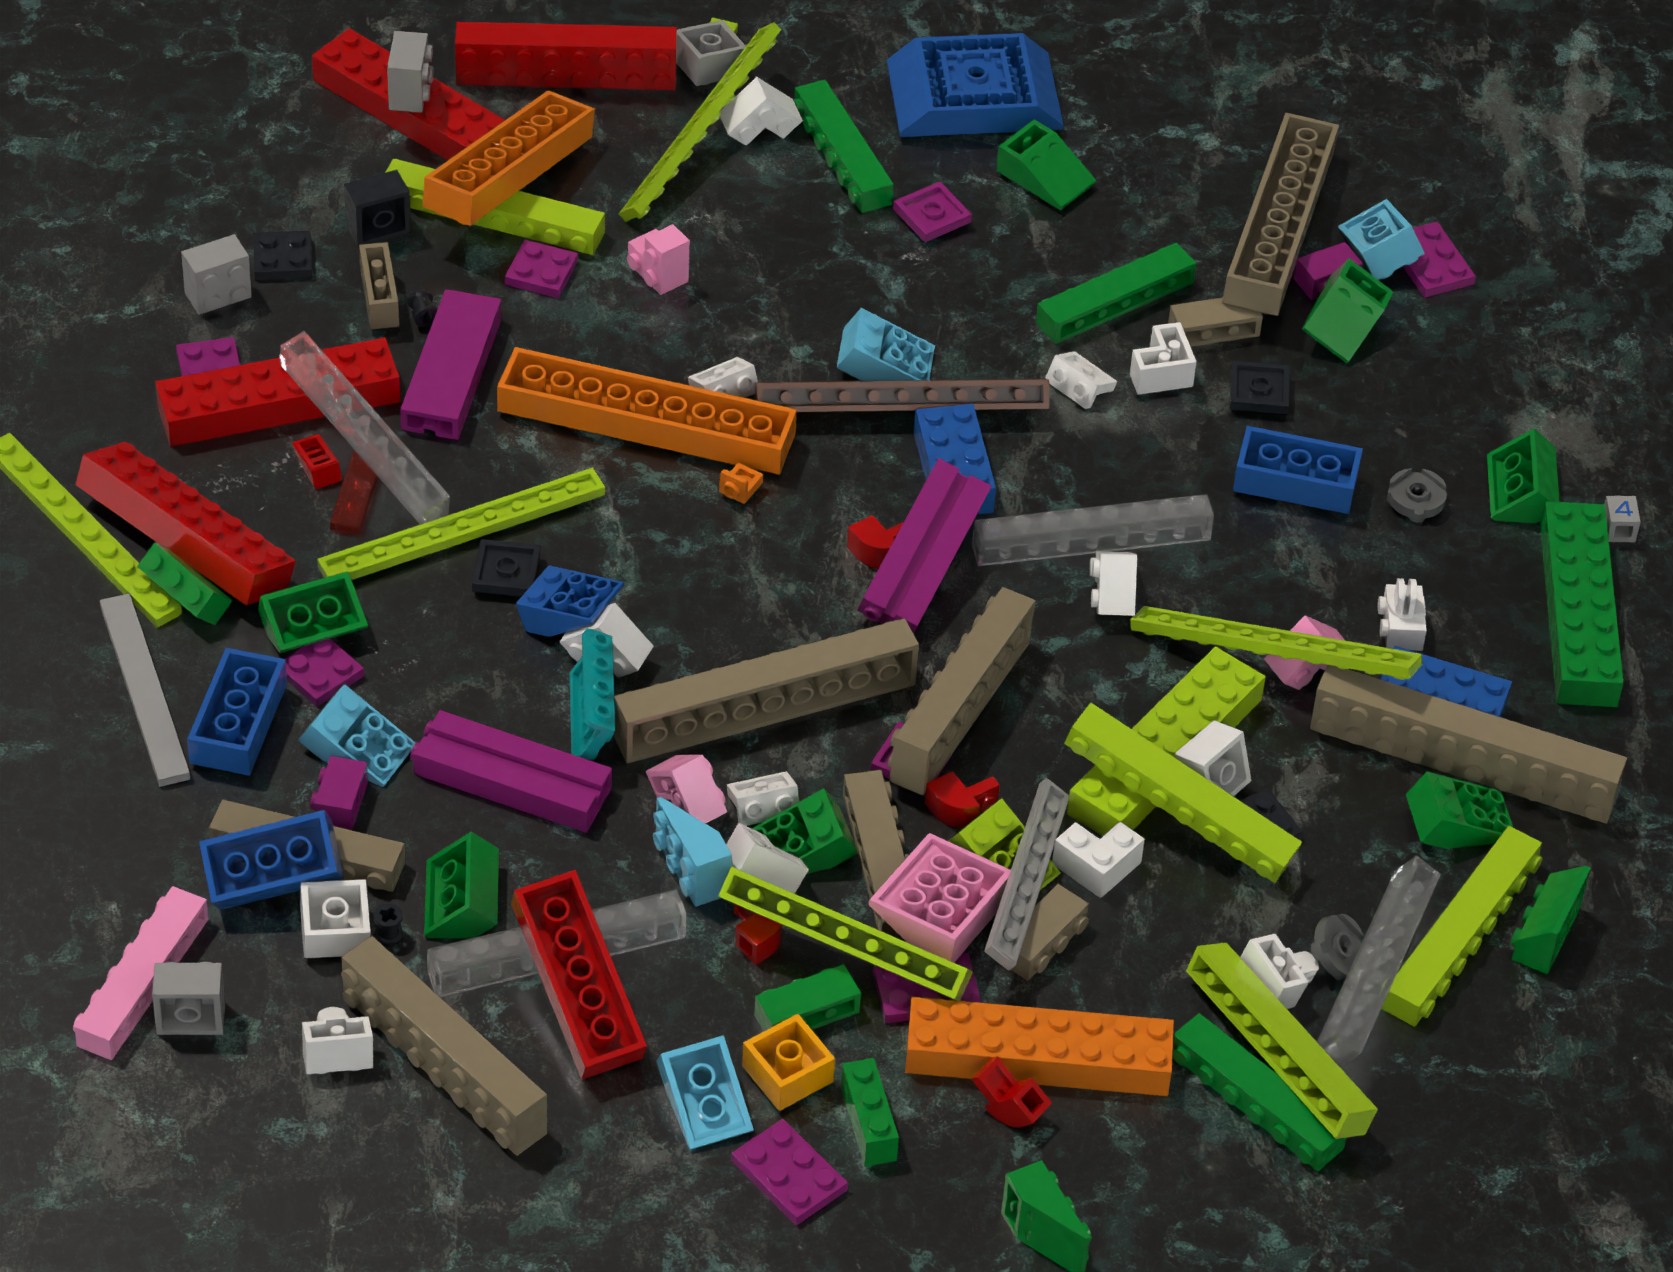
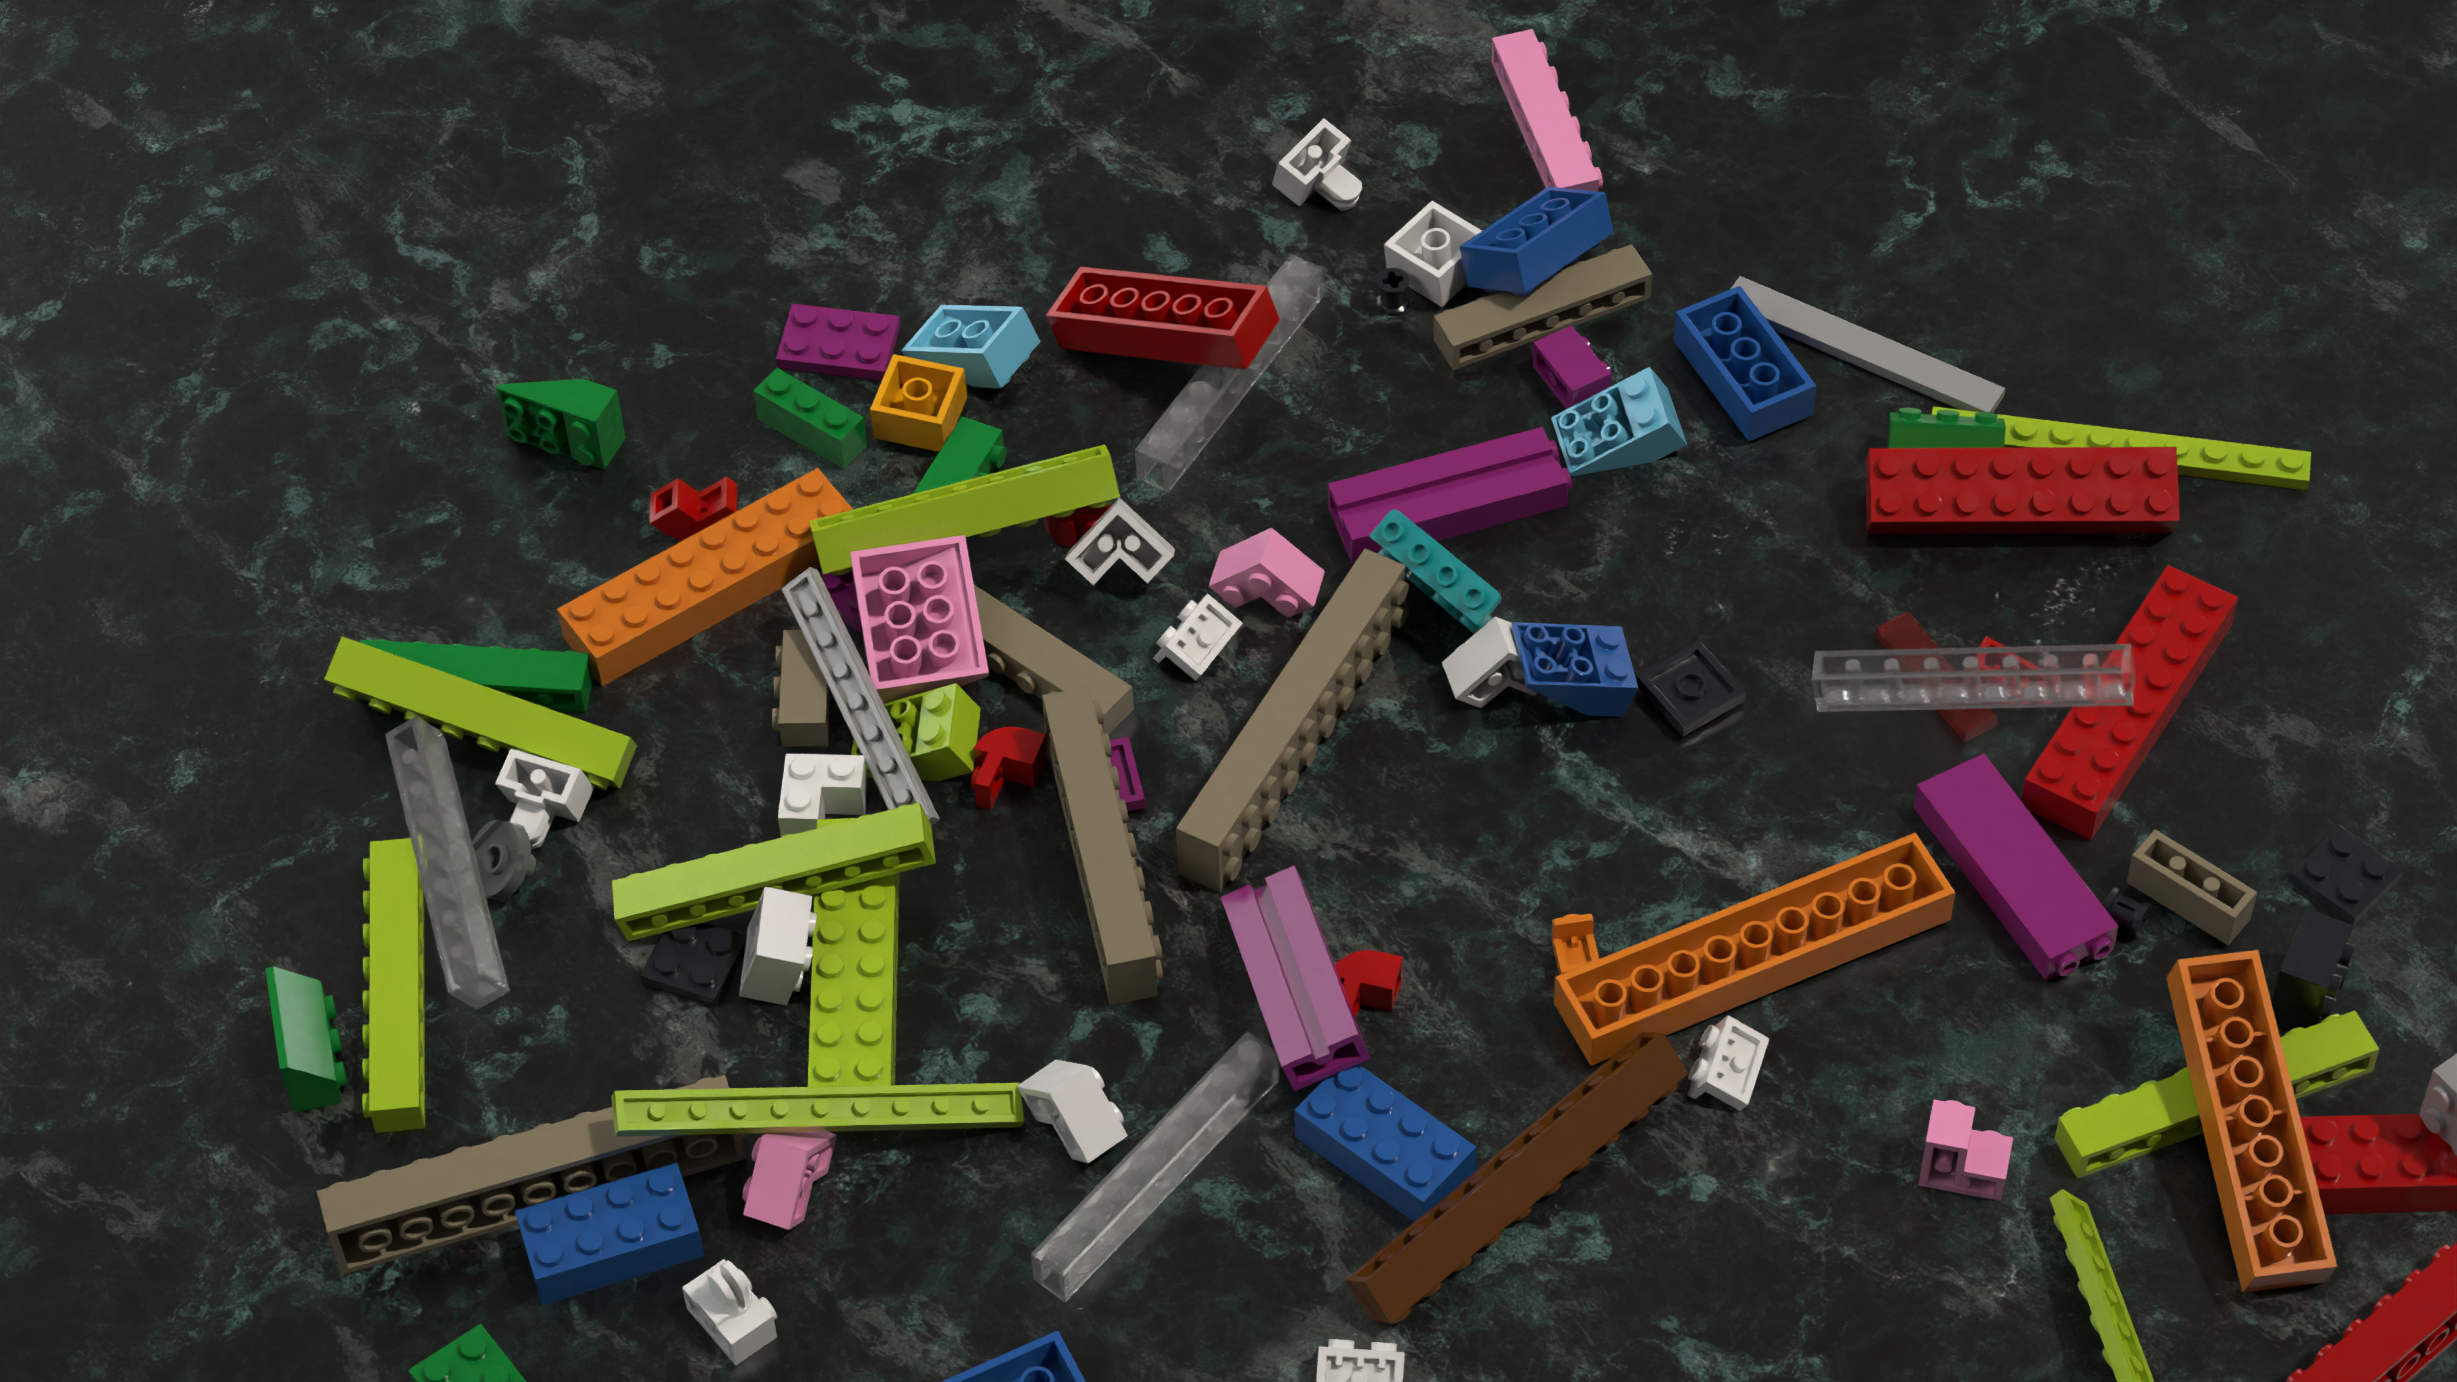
camera: 145 degrees right, 5 degrees up
(188, 998) = (1470, 107): light grey brick -> none
(207, 356) = (2241, 696): magenta plate -> none
(216, 274) = (2350, 764): light grey brick -> none
(311, 612) = (1797, 496): green slope -> none
(321, 670) = (1736, 475): magenta plate -> none
(444, 1046) = (1221, 213): dark tan brick -> none
(462, 889) = (1363, 363): green slope -> none
(464, 525) = (1781, 704): lime plate -> none
(541, 268) = (2078, 1067): magenta plate -> none
(692, 852) = (1195, 512): medium azure slope -> none
(812, 832) = (1116, 619): green slope -> none
(882, 351) = (1599, 1234): medium azure slope -> none
(1456, 812) = (489, 1099): green slope -> none

